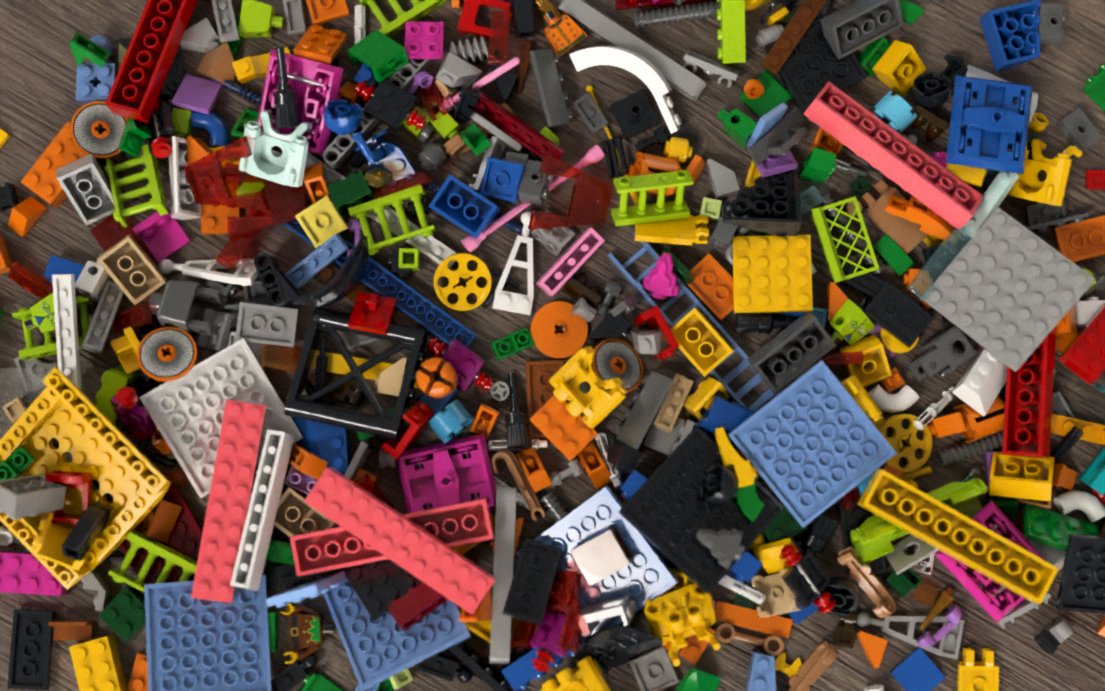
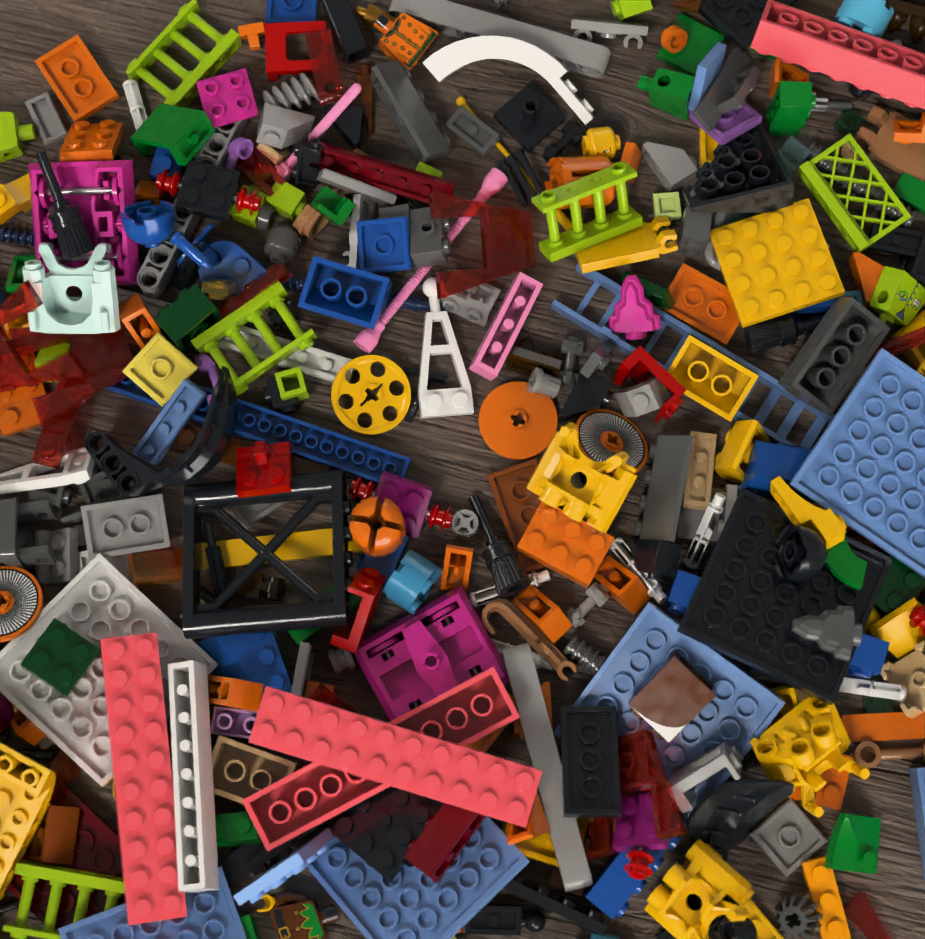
camera: 20 degrees left, 5 degrees down
(196, 404) = (60, 658): none -> dark green brick
(392, 378) = (316, 549): tan slope -> none
(512, 344) = (461, 457): green slope -> none
(662, 447) = (704, 531): none -> white piece

